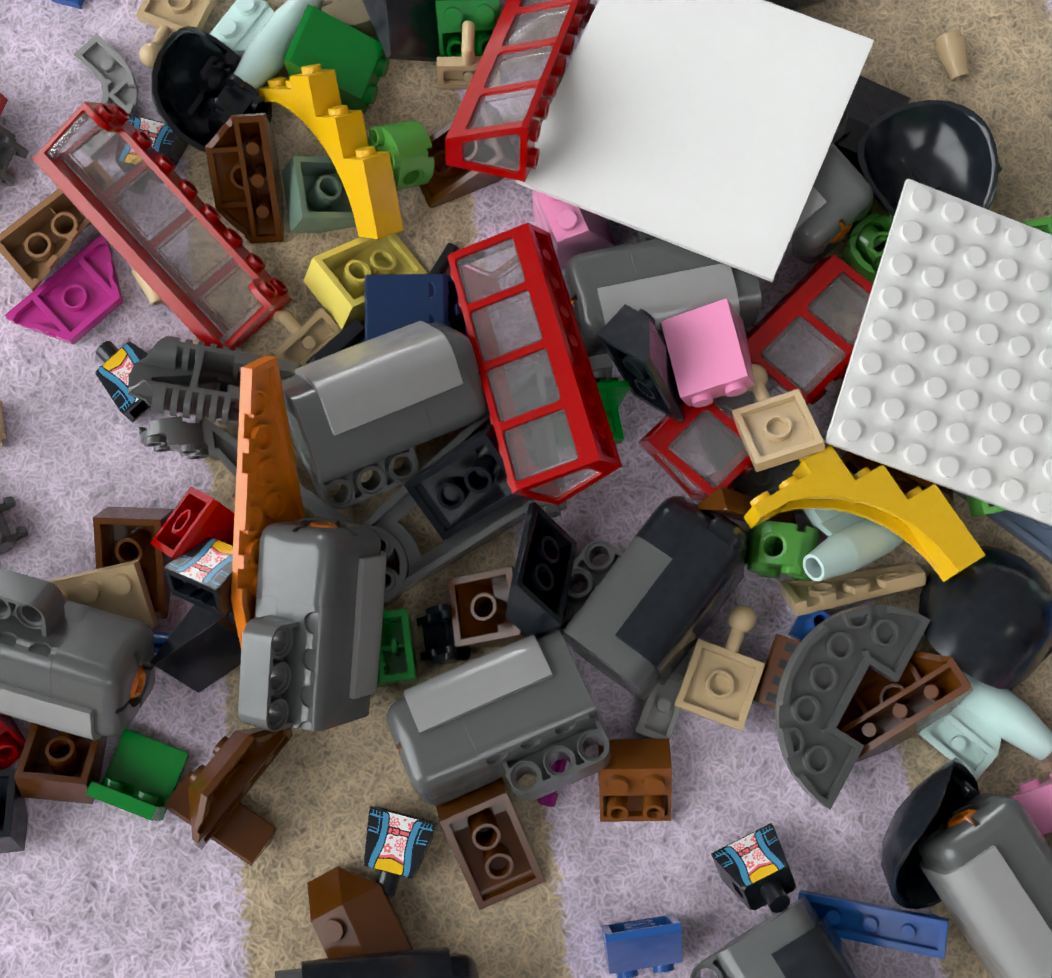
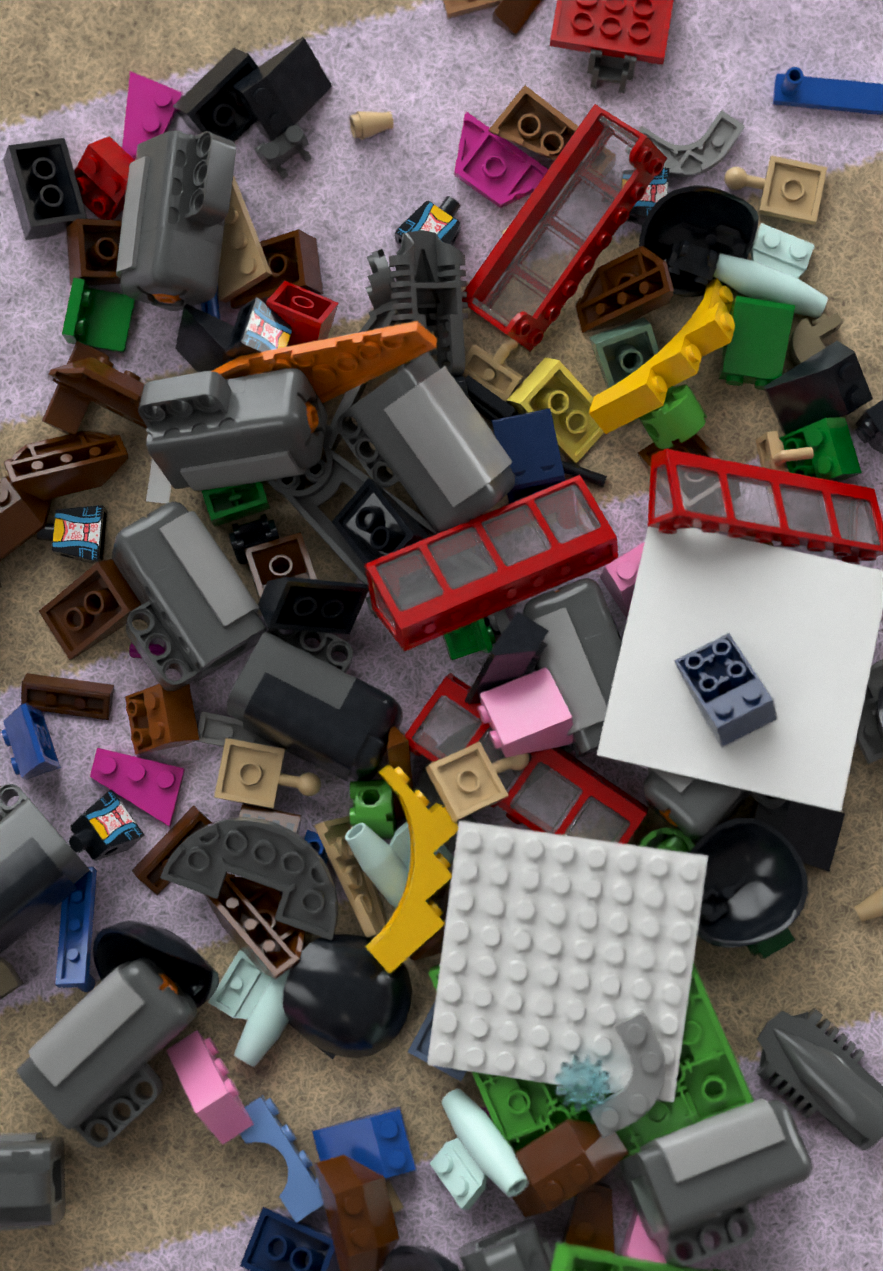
camera: 75 degrees right, 5 degrees up
(310, 843) = (66, 464): none -> reddish brown wedge
(352, 738) = (158, 486): none -> white sticker
(587, 892) = (67, 696): none -> reddish brown slope
(704, 819) = (140, 781): none -> dark pink wing
(724, 127) = (726, 690): none -> dark blue slope
(800, 812) = (152, 865): none -> reddish brown slope

